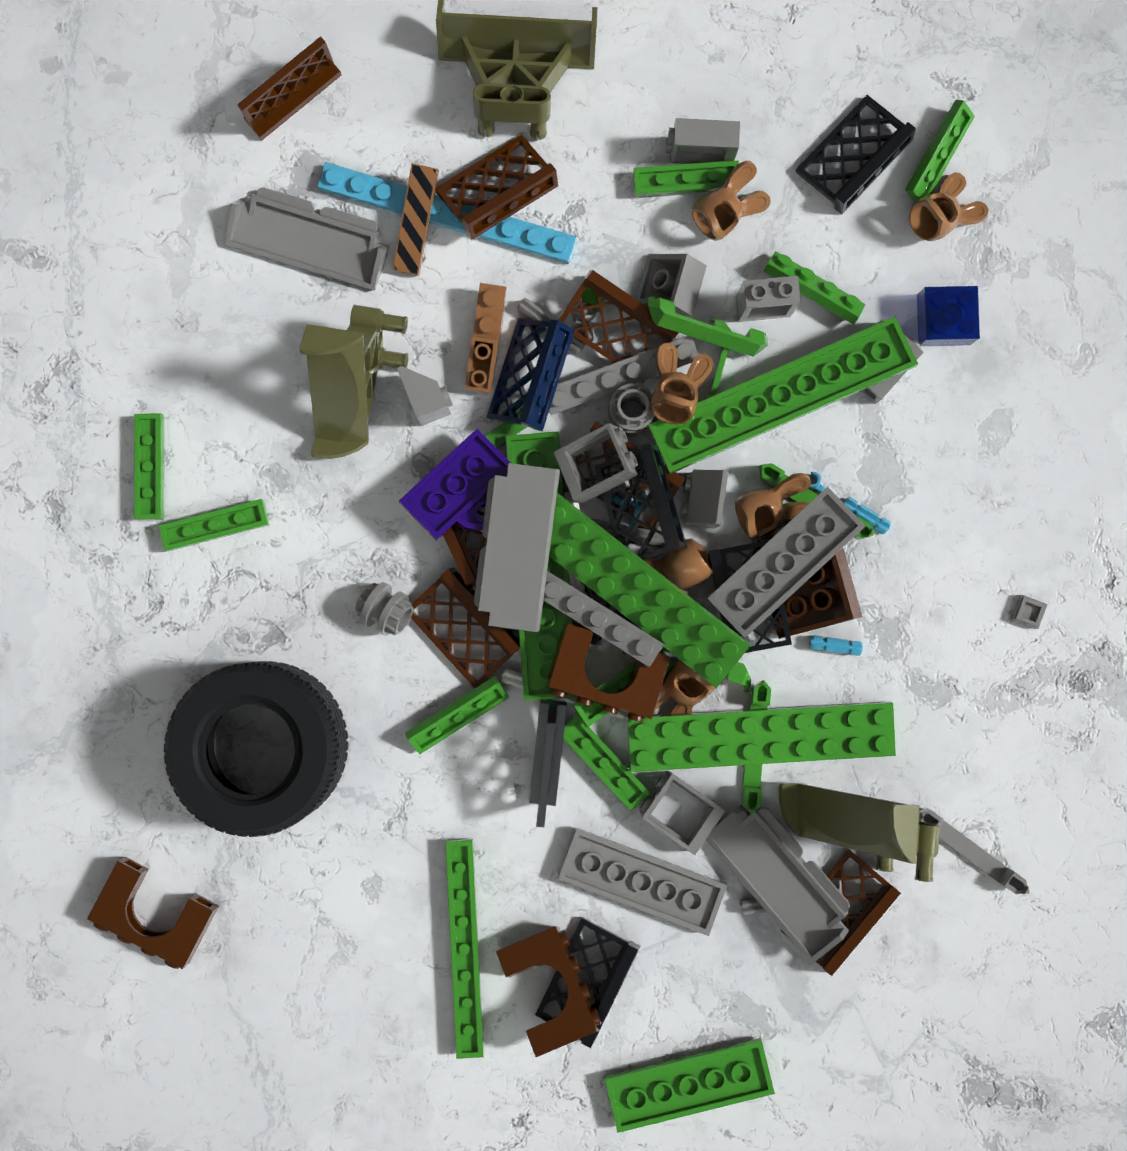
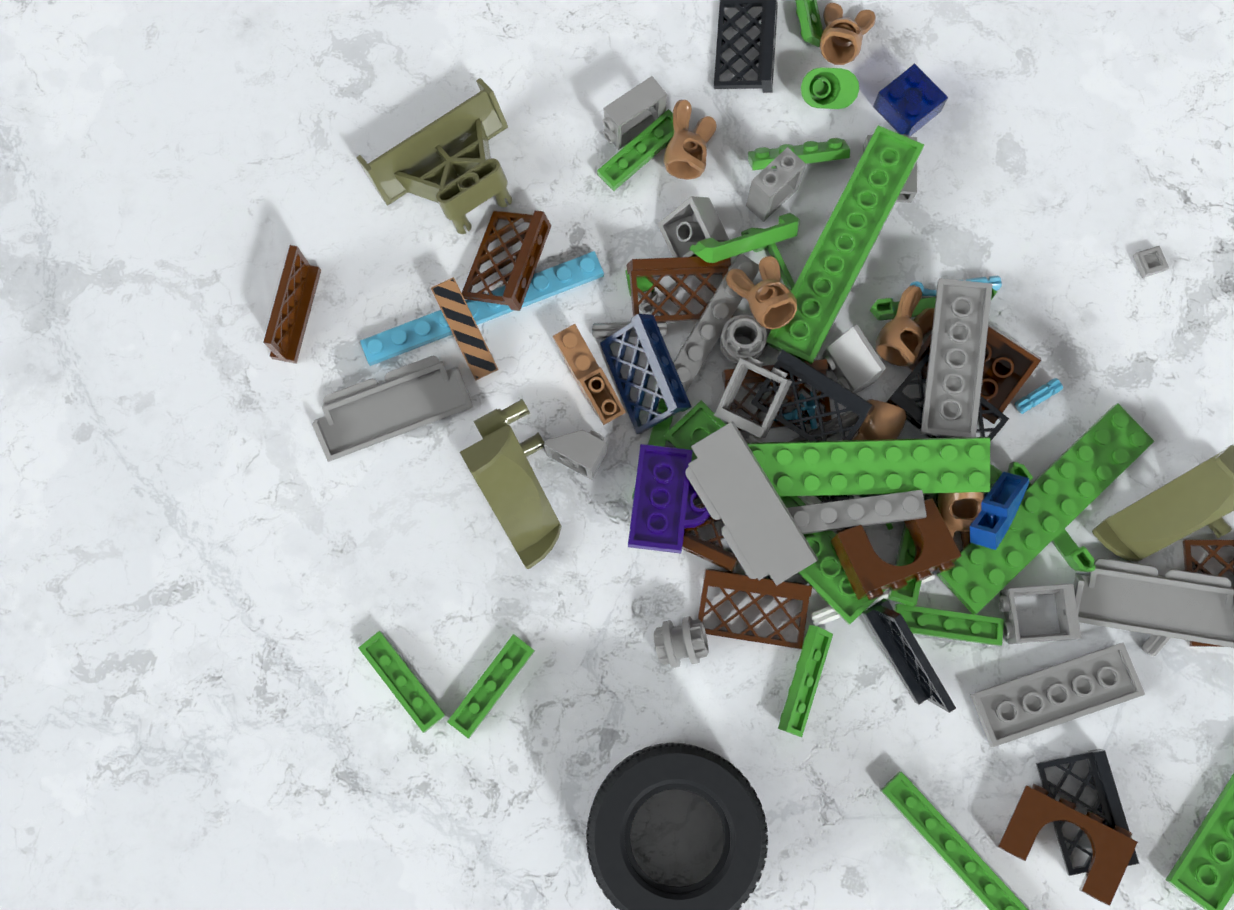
camera: 35 degrees left, 10 degrees down
(716, 708) = (998, 510): none -> blue slope
(888, 250) = (829, 88): none -> bright green piece

